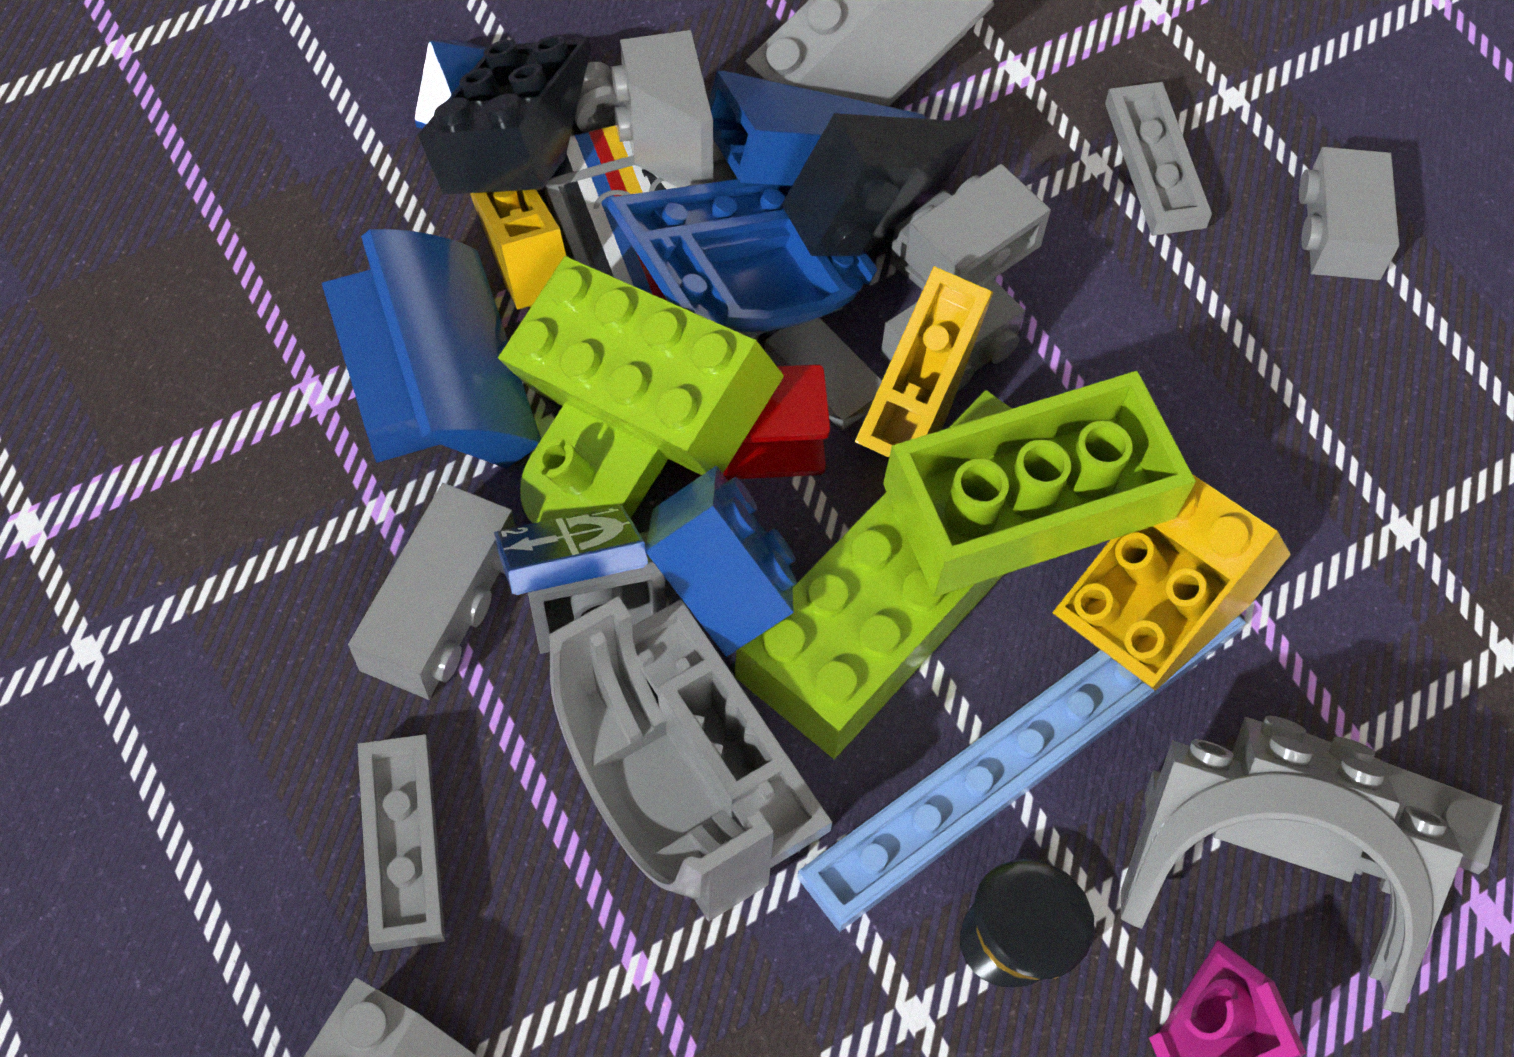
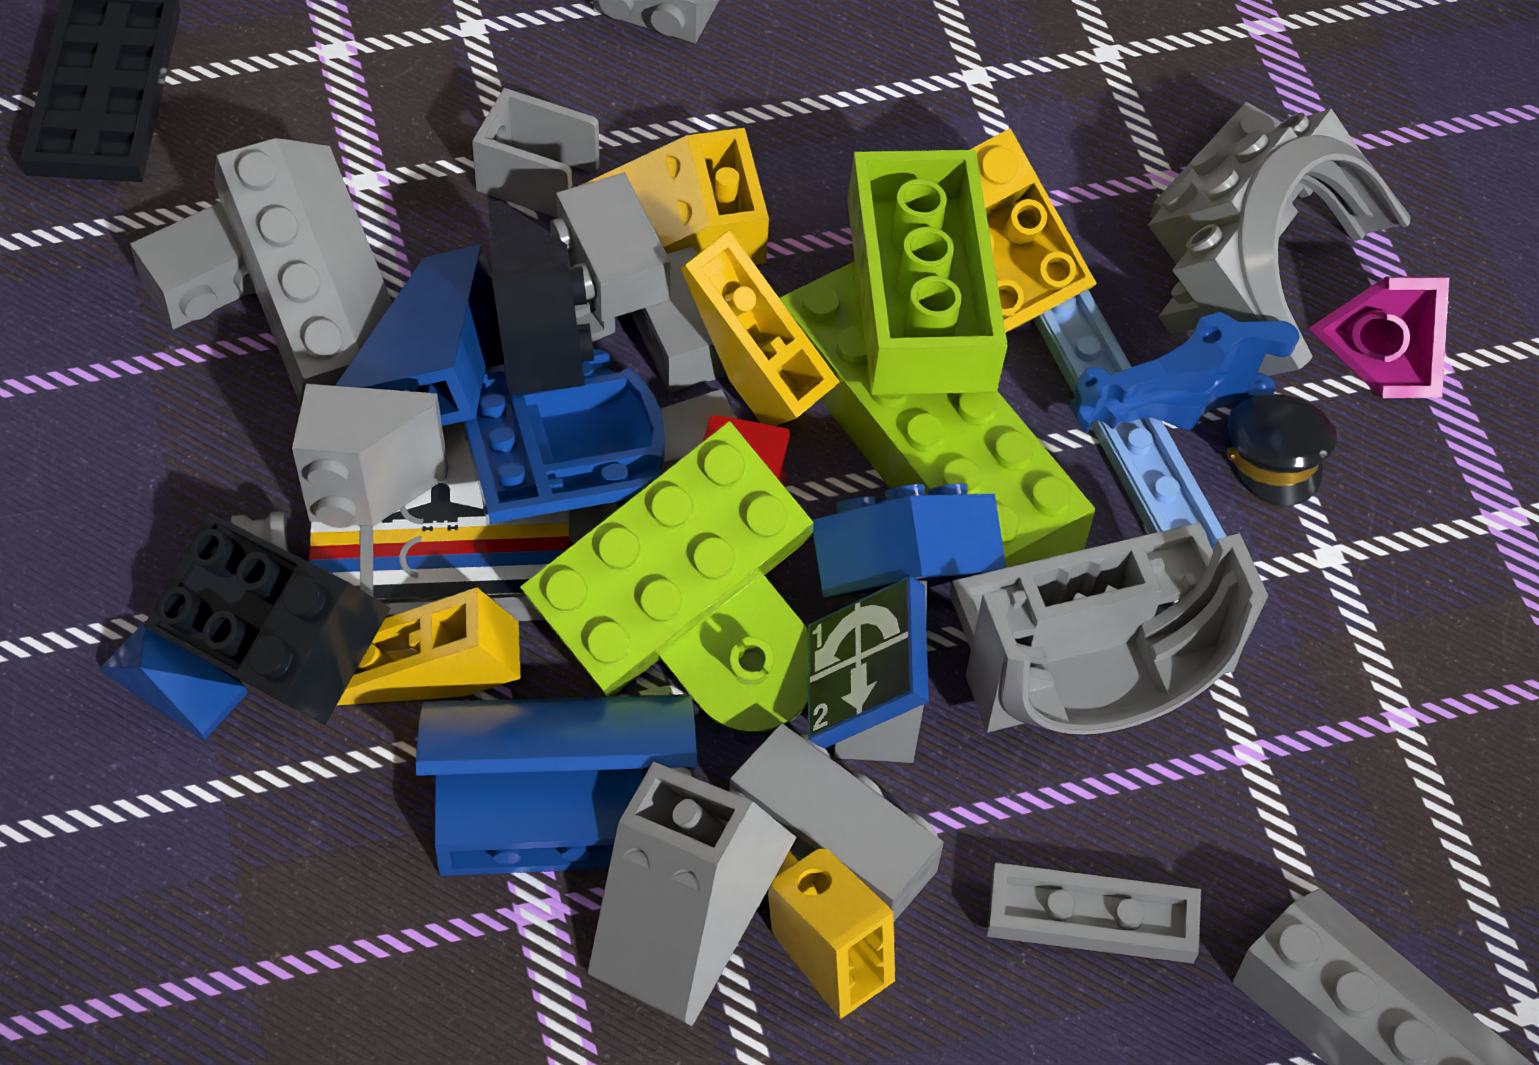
camera: 75 degrees left, 5 degrees down
(316, 600) = (833, 929): none -> yellow torso
(324, 469) = (682, 889): none -> light grey slope
(1054, 801) = (1203, 374): none -> blue animal
(1086, 303) = (701, 191): none -> yellow slope
(1111, 149) = (532, 150): none -> light grey piece
(1157, 159) = (476, 89): light grey plate -> none

